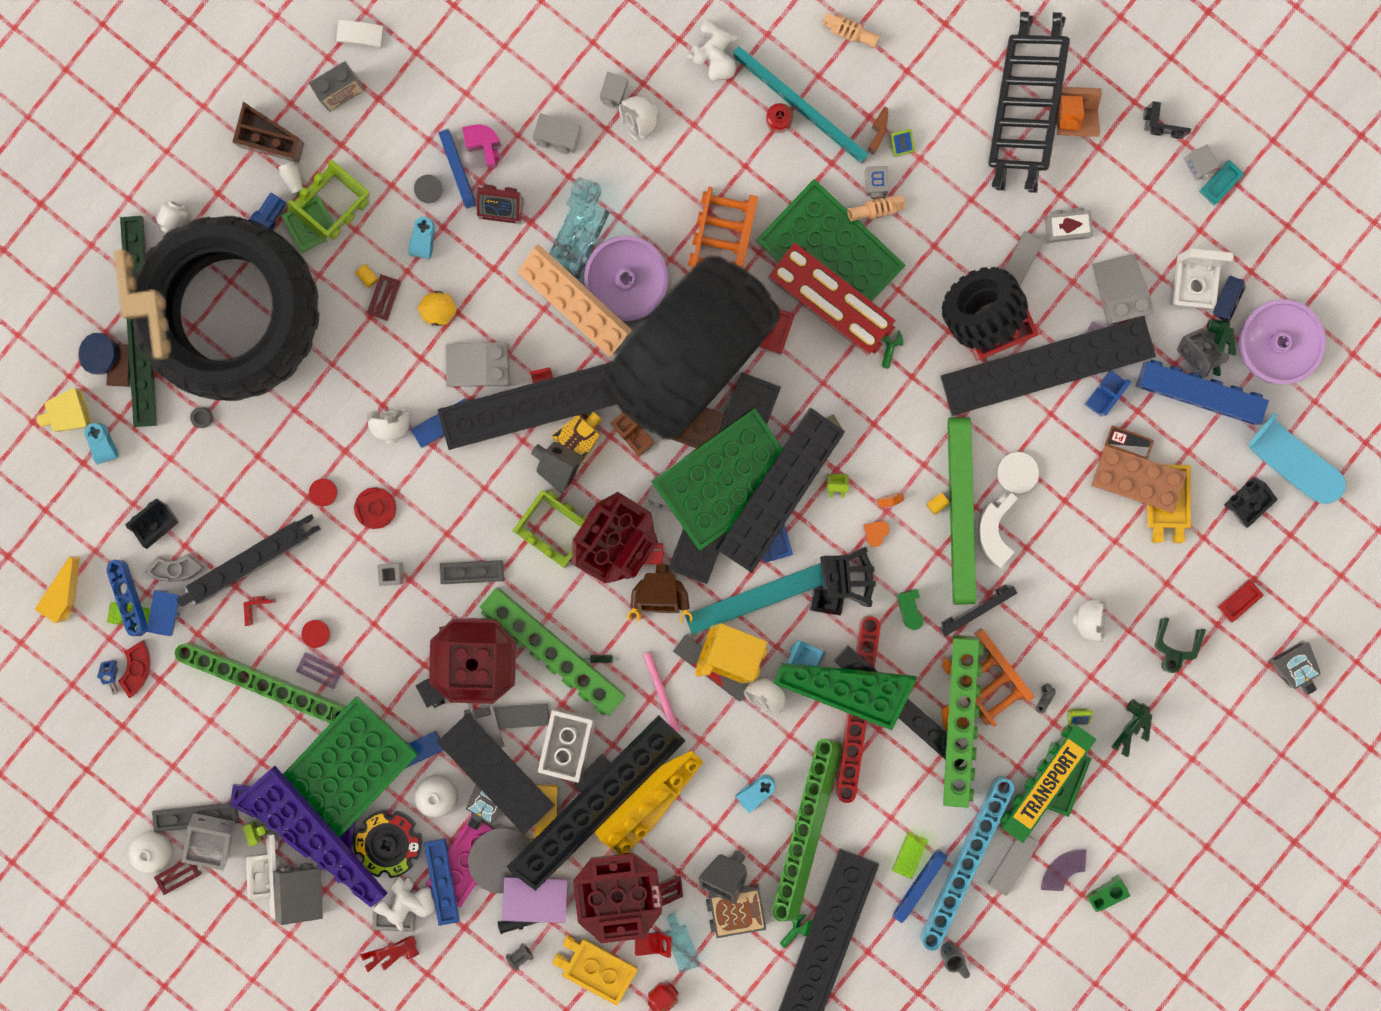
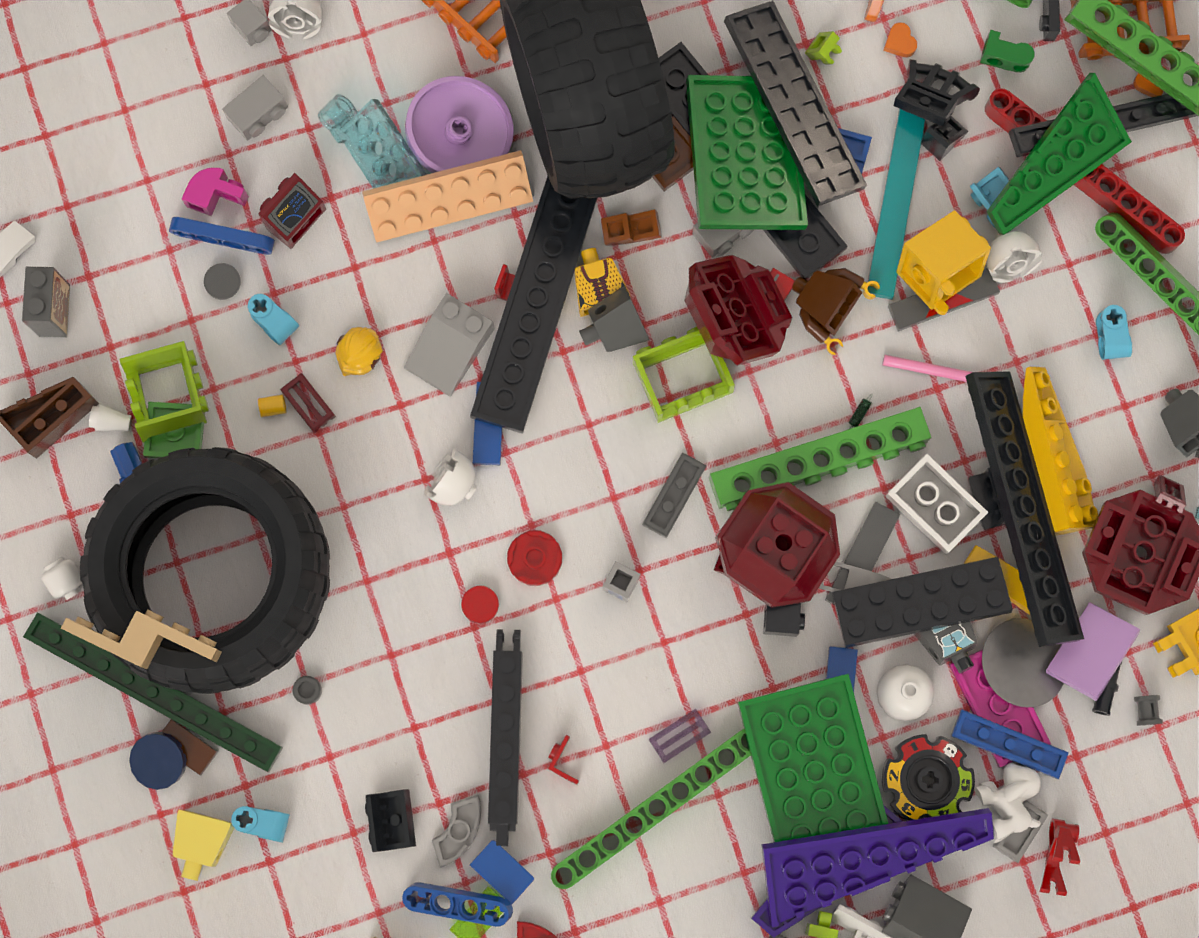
camera: 60 degrees left, 10 degrees down
(315, 633) = (634, 713): red piece -> none

